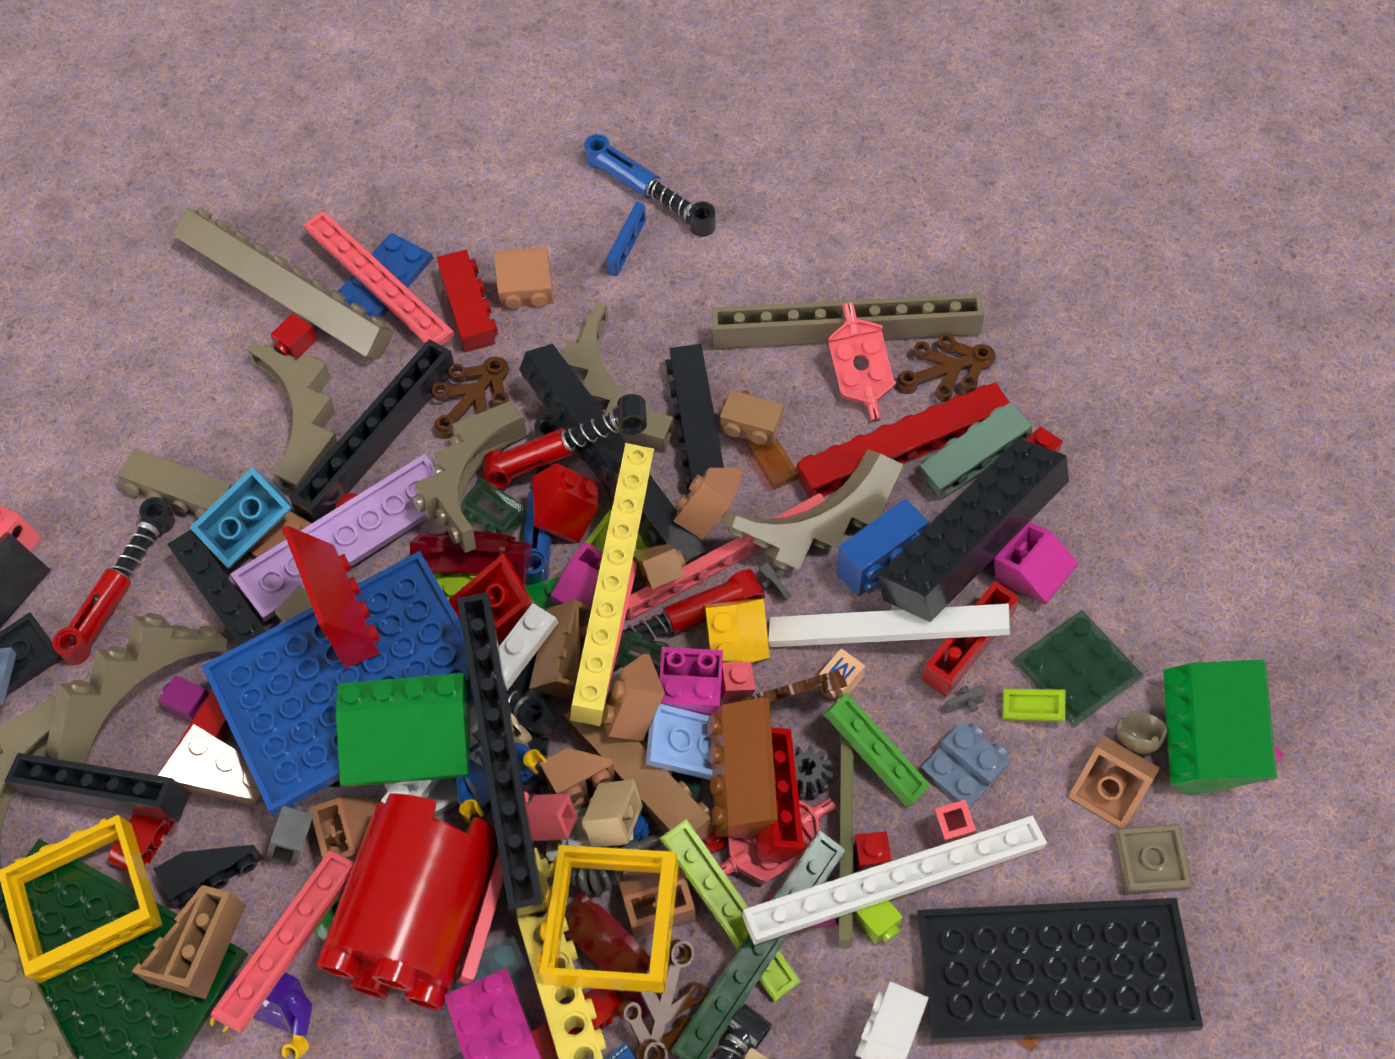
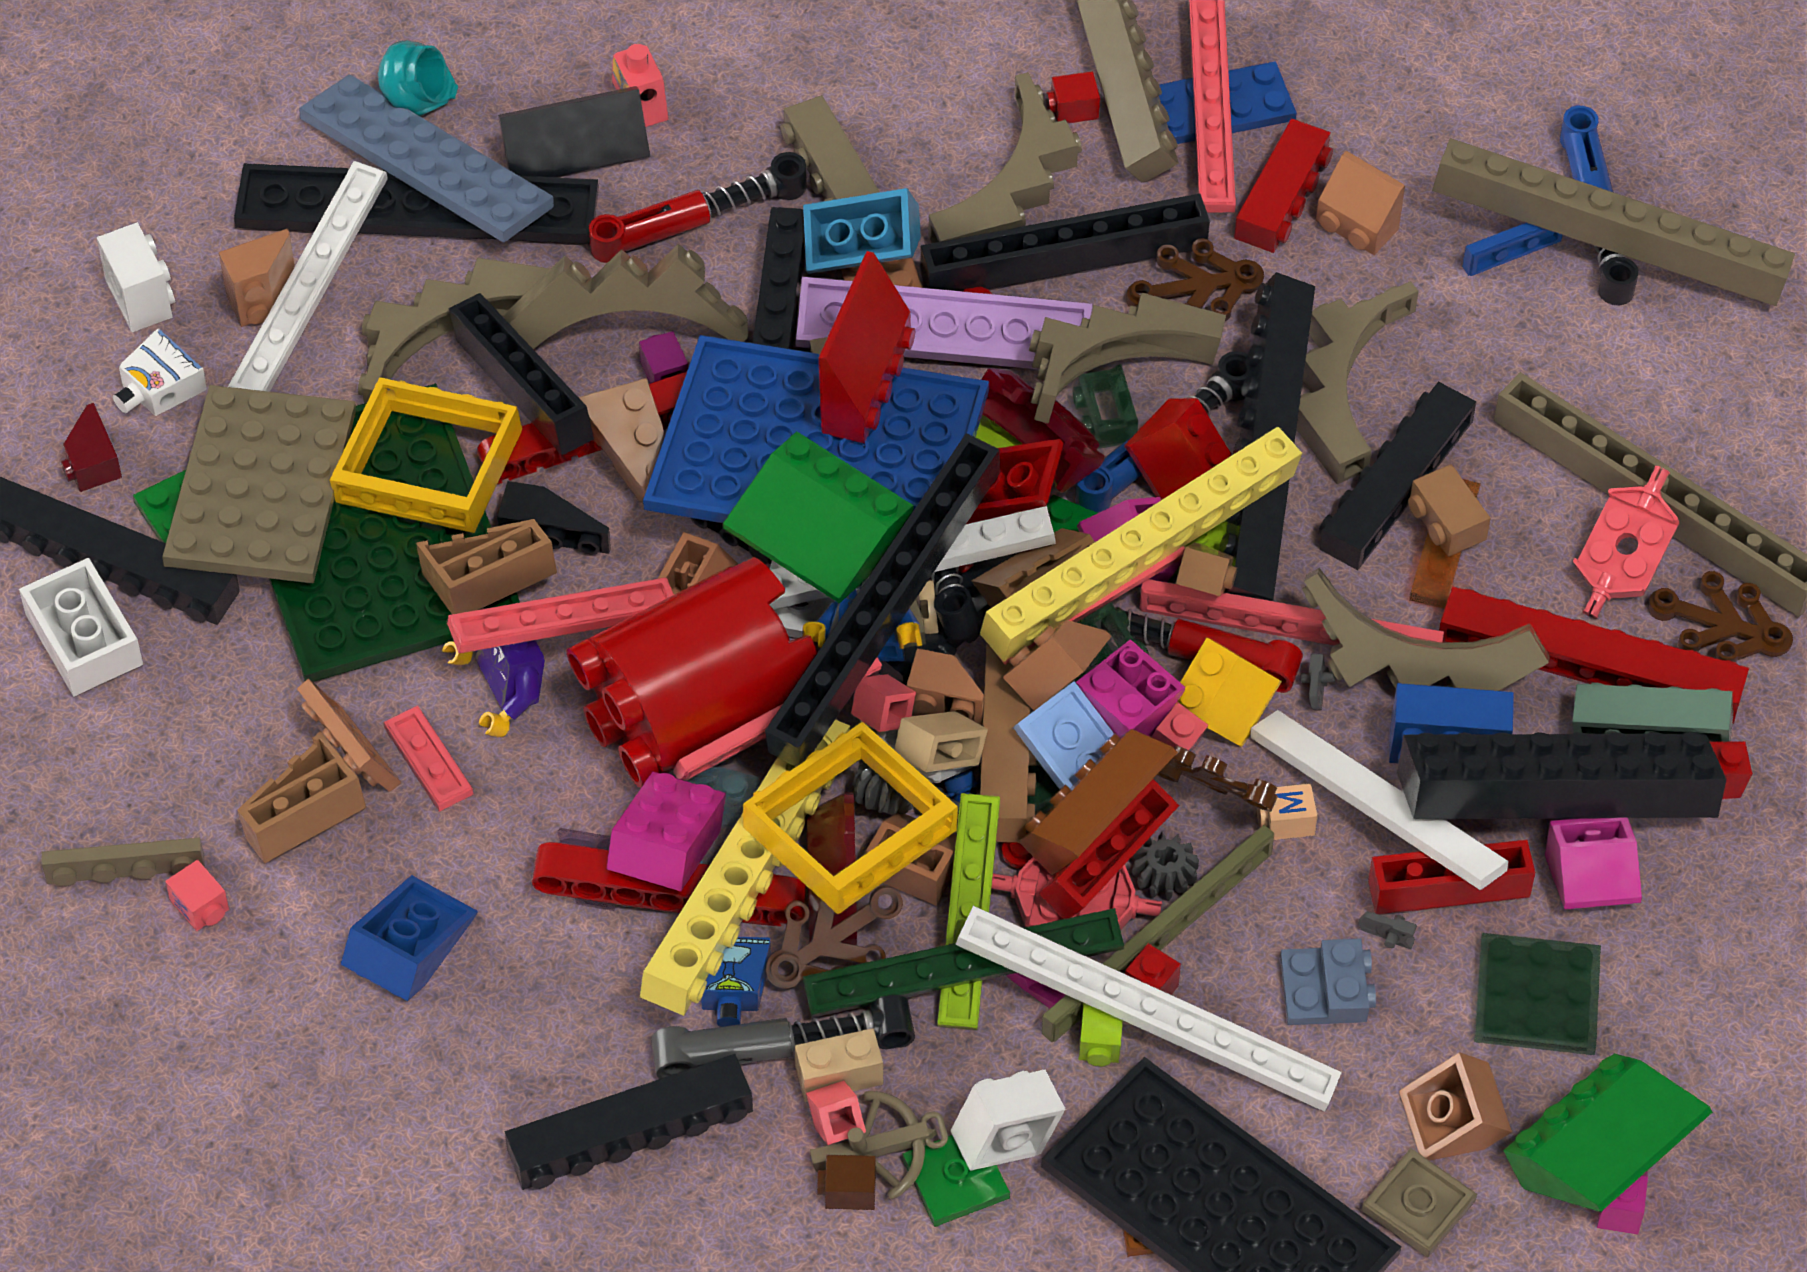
camera: 40 degrees right, 5 degrees down
(289, 834) = (645, 543): dark grey piece -> none
(503, 466) = (1157, 372): piece -> none
(673, 186) = (1613, 222): none -> dark tan brick
(707, 500) = (1319, 542): nougat slope -> none
(876, 749) = (1248, 893): bright green plate -> none
(955, 821) = (1258, 1010): coral brick -> none
(1034, 705) = (1452, 985): lime tile -> none
(1141, 732) = (1528, 1090): dark tan hair -> none

